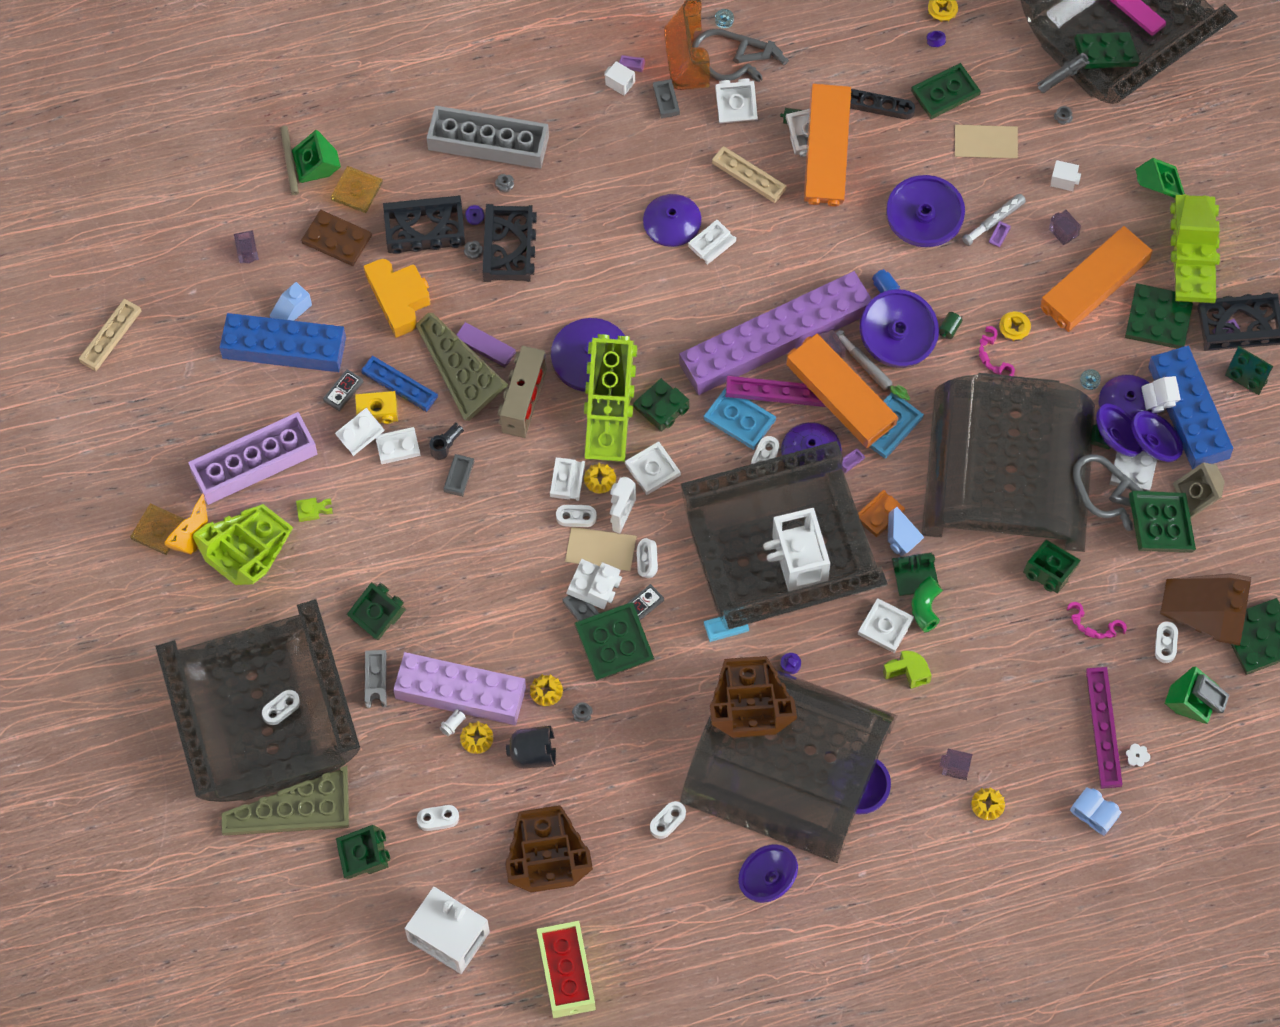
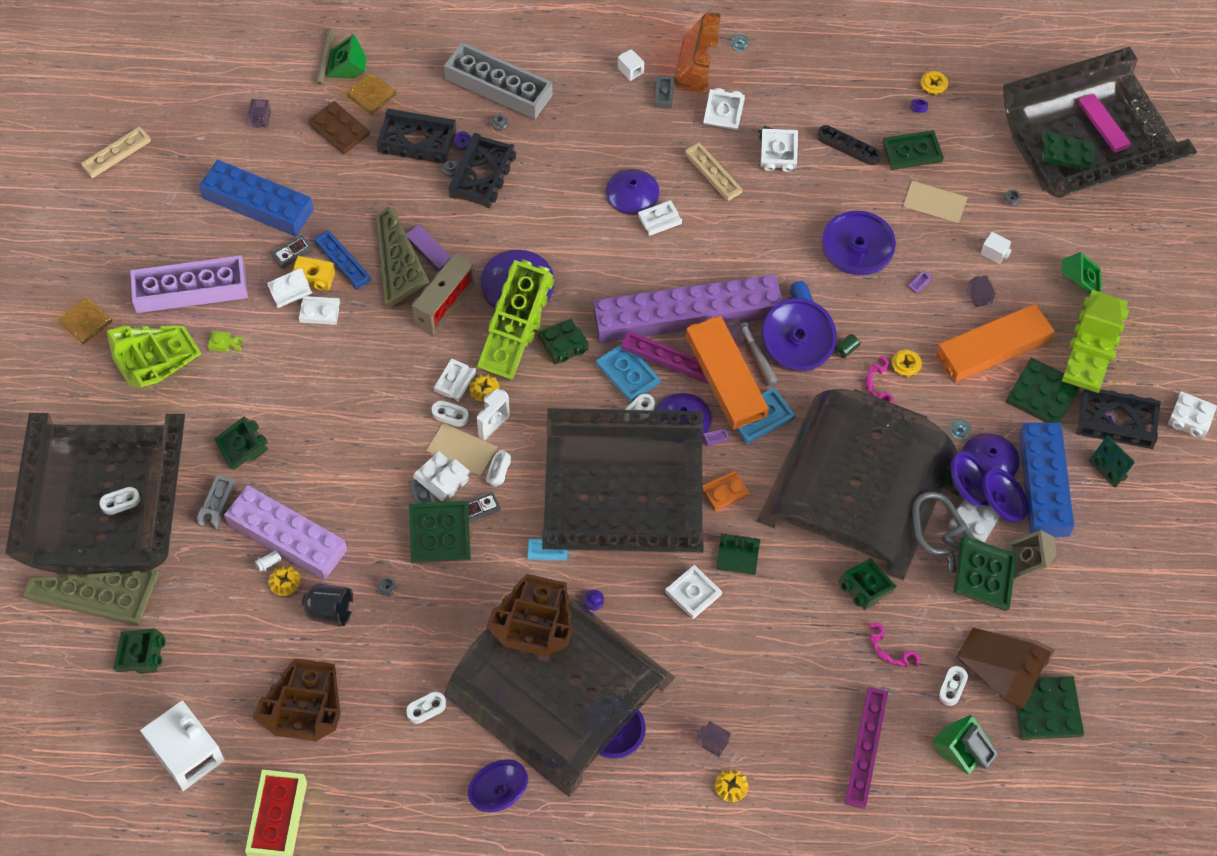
camera: 15 degrees right, 5 degrees down
(184, 539) = (98, 333): light orange piece -> none
(292, 303) = (278, 168): light blue slope -> none
(398, 294) = (371, 186): light orange brick -> none
(438, 820) = (219, 642): white plate -> none
(445, 440) = (360, 318): black pin -> none
(458, 475) = (362, 350): dark grey tile -> none
(551, 697) = (363, 565): yellow gear -> none
(633, 63) = (648, 57): medium lavender piece -> none
(652, 468) = (534, 392): white plate -> none
(769, 49) = (769, 75): dark grey piece -> none
(799, 550) = (633, 498): white piece -> none
(827, 144) = (789, 163): orange brick -> none
(900, 391) = (781, 390): bright green plant -> none
(901, 532) = (737, 513): light blue slope -> none
(911, 665) = (703, 634): lime brick -> none
(922, 604) = (734, 581): green cylinder -> none
(1008, 208) = (928, 264): light grey piece -> none
(1069, 68) = (1028, 157): dark grey pin -> none
(1095, 810) = (832, 824): light blue brick -> none
(1135, 750) = (890, 778): white plant -> none
(1161, 394) = (1020, 457): white brick -> none

